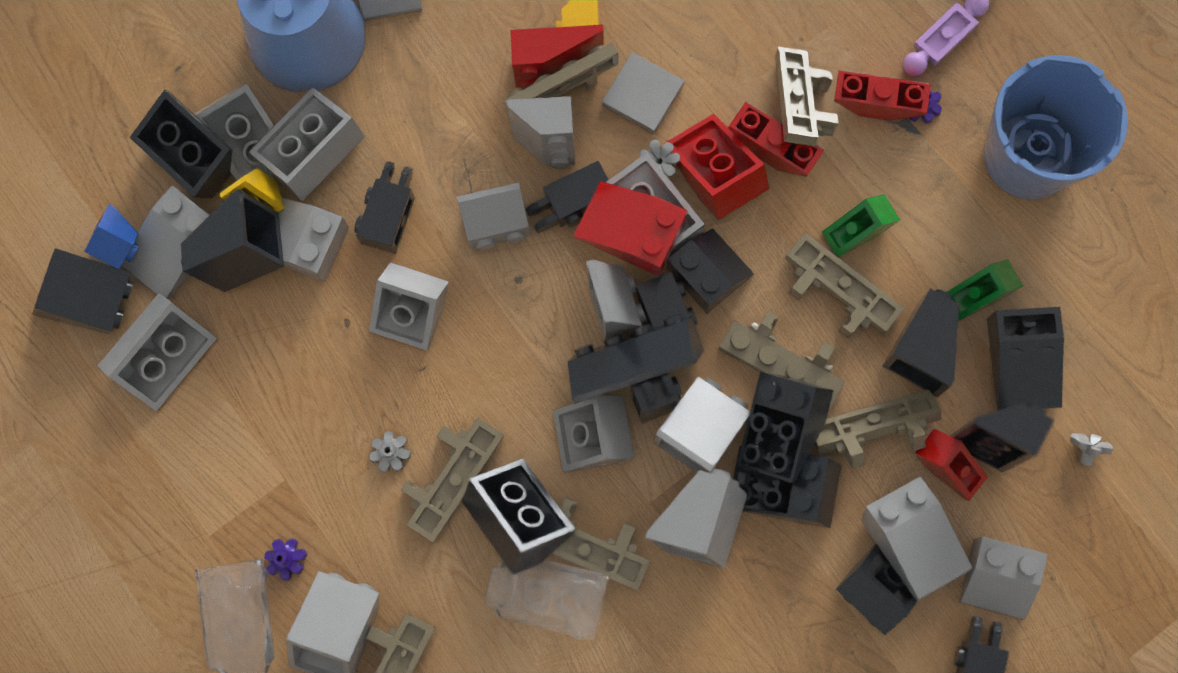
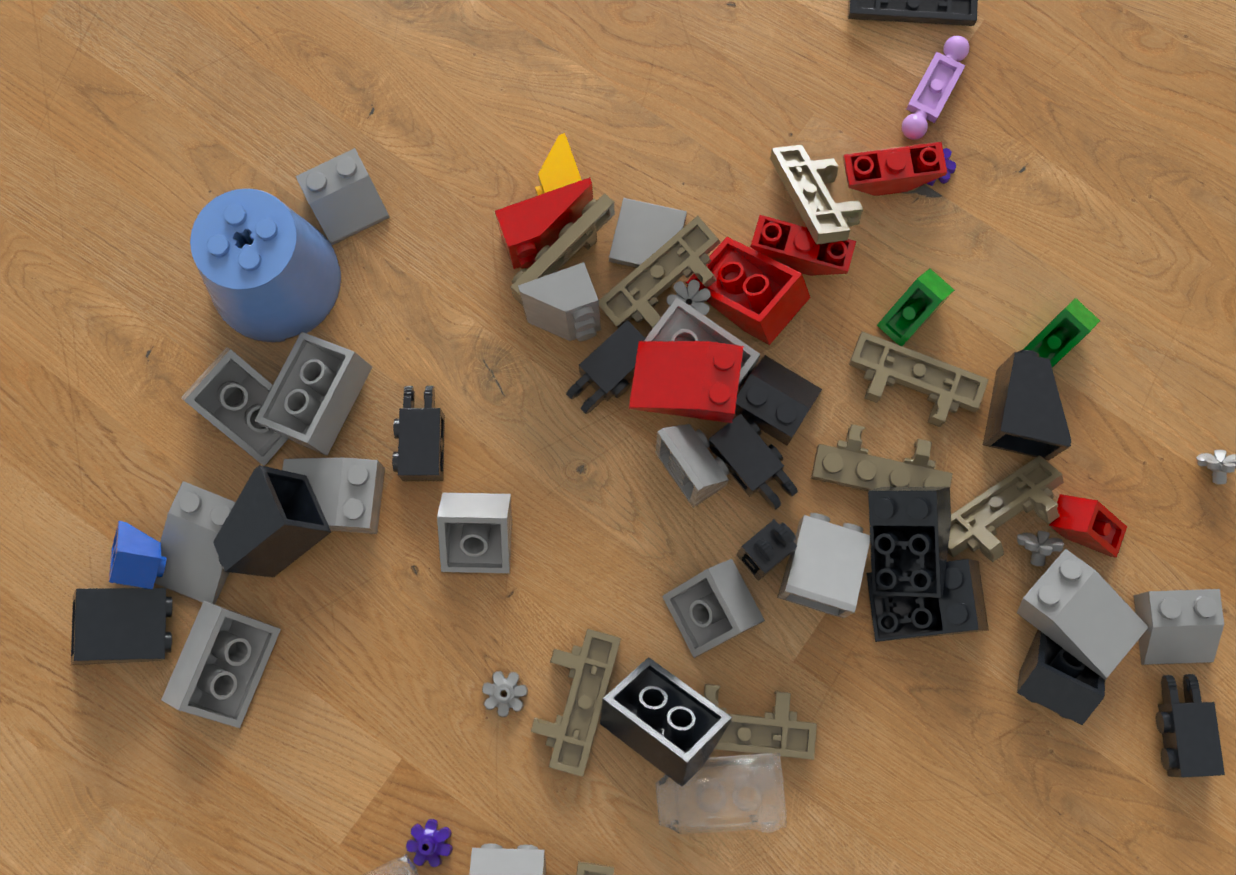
camera: 20 degrees left, 0 degrees up
(184, 146) = (182, 435): black slope -> none
(260, 187) = (276, 454): yellow slope -> none
(494, 216) = (538, 411): light grey slope -> none
(634, 358) = (734, 517): black slope -> none
(662, 118) = (679, 256): none -> dark tan hinge
(701, 519) = (858, 664): light grey slope -> none
(901, 469) = (1040, 545): none -> light grey plant
(1006, 436) = (1148, 481): black slope -> none
(1027, 356) = (1128, 392): black slope -> none
(1053, 127) = (1087, 150): medium blue cone -> none

